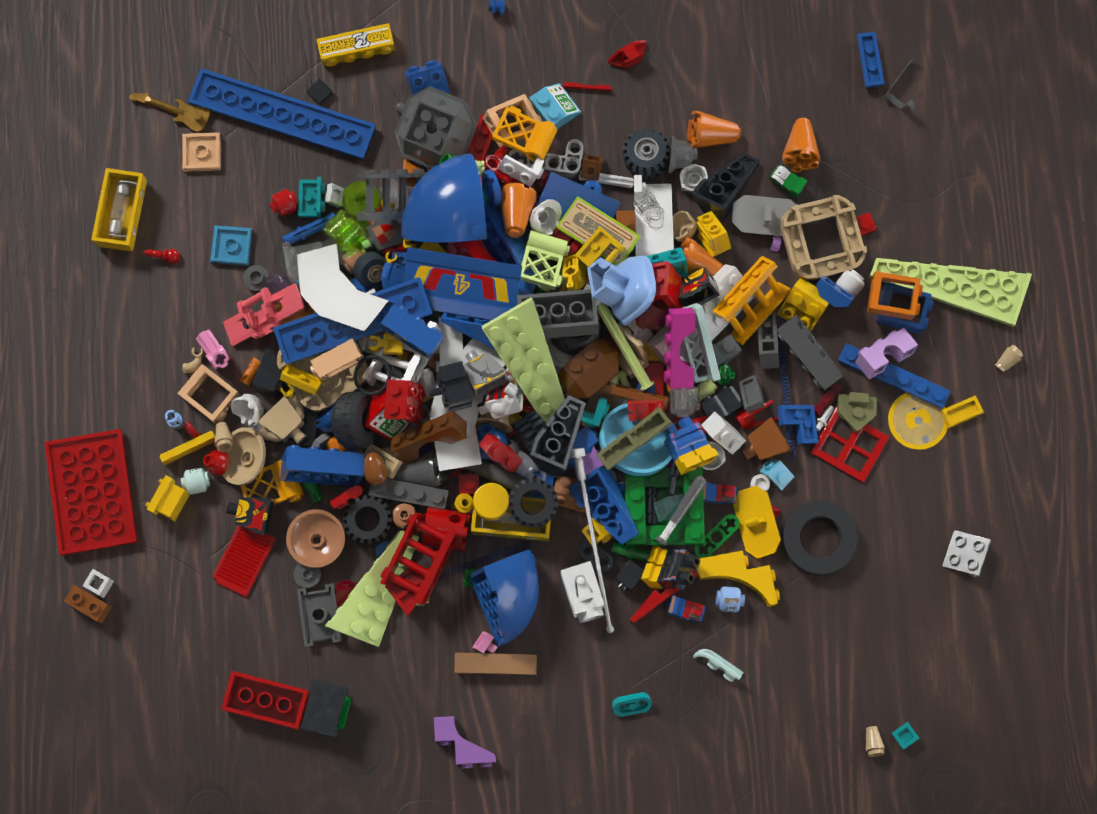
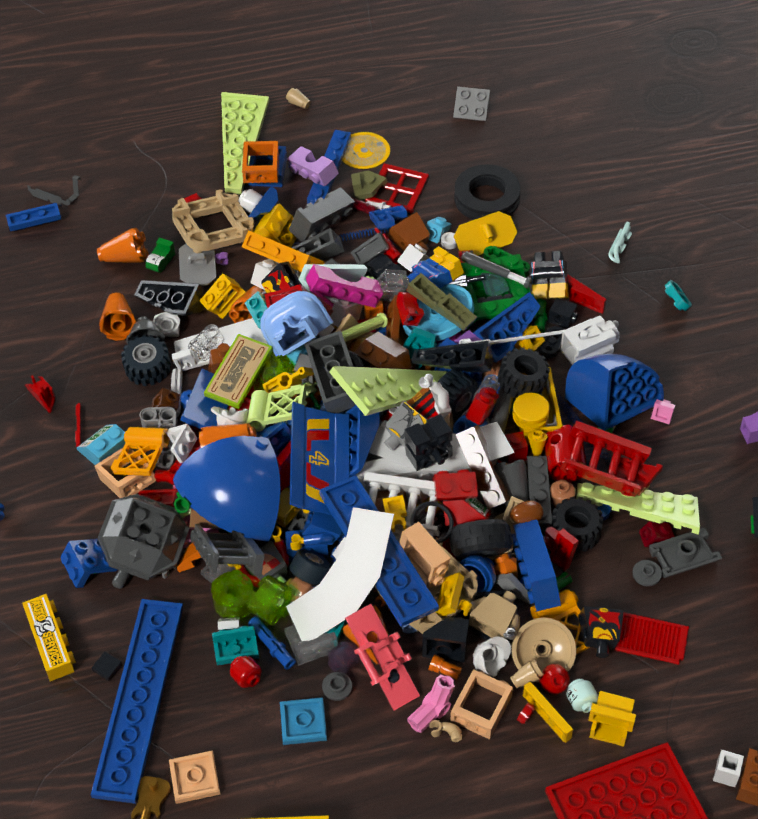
camera: 100 degrees left, 25 degrees down
(171, 256) = (327, 788): red bar -> none
(172, 421) = (522, 725): light blue pin -> none
(310, 526) = (611, 556): nougat dish -> none
(412, 331) = (381, 482): blue brick -> none
(495, 664) = (677, 393): medium nougat slope -> none
(596, 246) = (257, 363): yellow plate -> none
(683, 226) = (217, 317): tan hair -> none
(686, 609) = (580, 269): leg -> none
(729, 599) = (561, 241): light blue head -> none
(733, 567) = (535, 227): yellow arch -> none
(874, 742) = (648, 139): tan cone -> none
(905, 735) = (635, 122): teal plate -> none
(962, 412) = (351, 123): yellow tile -> none

